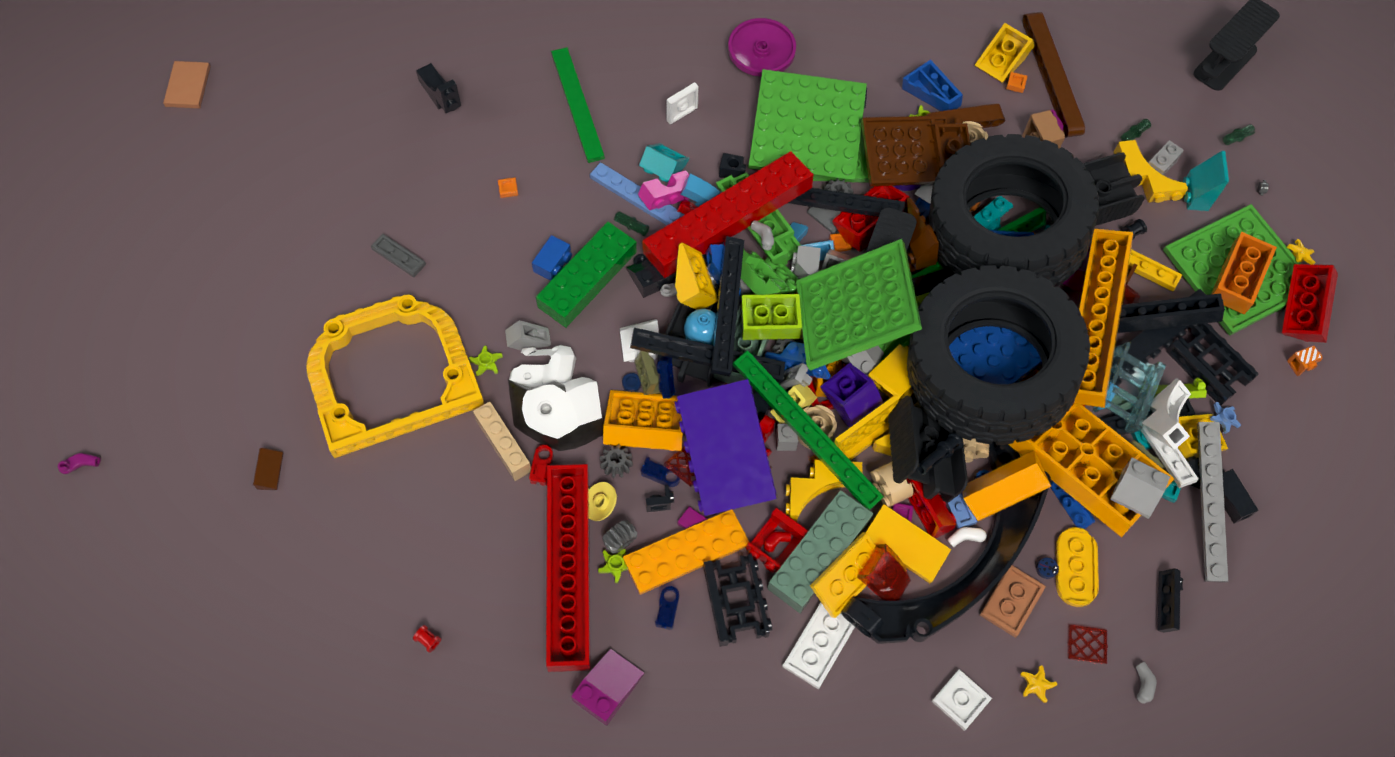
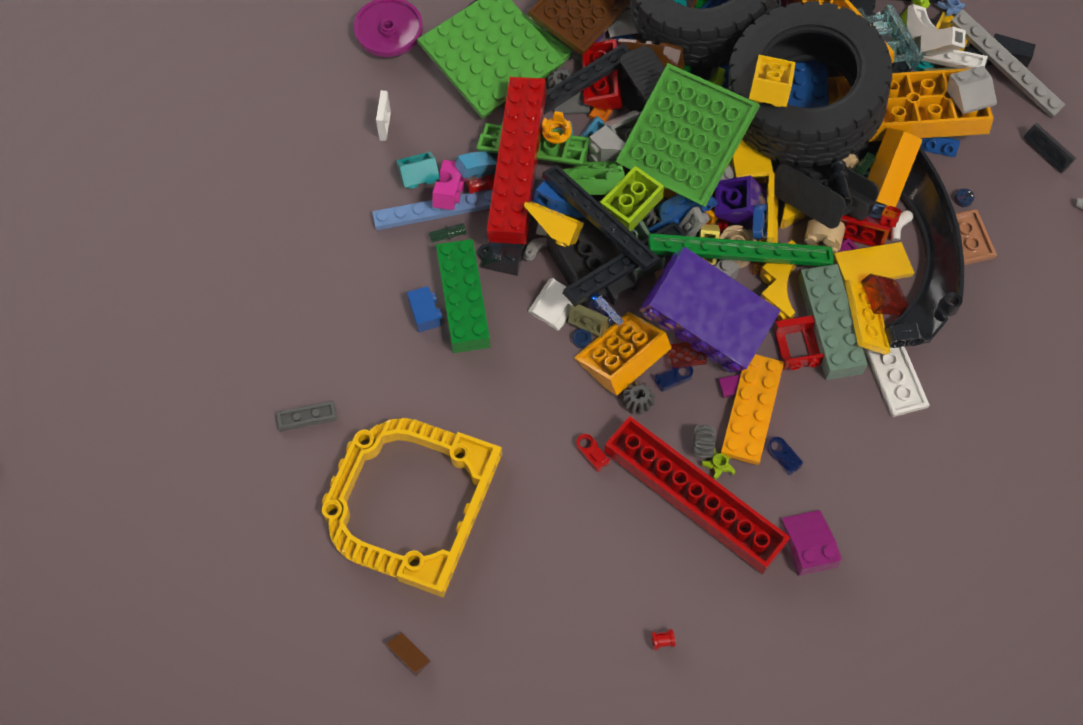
camera: 45 degrees left, 0 degrees up
(442, 93) = (188, 269): black arch -> none
(486, 361) = (466, 423): lime animal -> none
(502, 441) = (548, 462): tan brick -> none
(507, 187) = (326, 292): orange tile -> none
(527, 335) = (474, 378): light grey slope -> none
(551, 404) = (550, 406): white piece -> none
(577, 105) = (302, 187): green tile -> none
(601, 501) = (665, 422): light yellow dish -> none
(659, 502) = (699, 393): black bracket -> none
(700, 326) = (594, 250): dark azure cylinder -> none
(721, 602) = (812, 417): black fence -> none
(729, 161) = (464, 132): black brick -> none
(766, 234) = (557, 149): light grey arm -> none
(774, 539) = (795, 344): red arm -> none
(782, 212) = (556, 122): none -> light orange piece
(846, 421) = (760, 221): none -> blue beam
(954, 319) = (772, 81): none -> yellow slope
(958, 518) = (890, 216): none -> red piece
(961, 699) = (1011, 325): white tile -> none
(984, 464) = (864, 164): none -> clear green axle
(1037, 684) = (1040, 271): yellow animal -> none
(1078, 567) = (973, 174): yellow tile -> none
(1087, 644) = (1027, 228): clear red window -> none

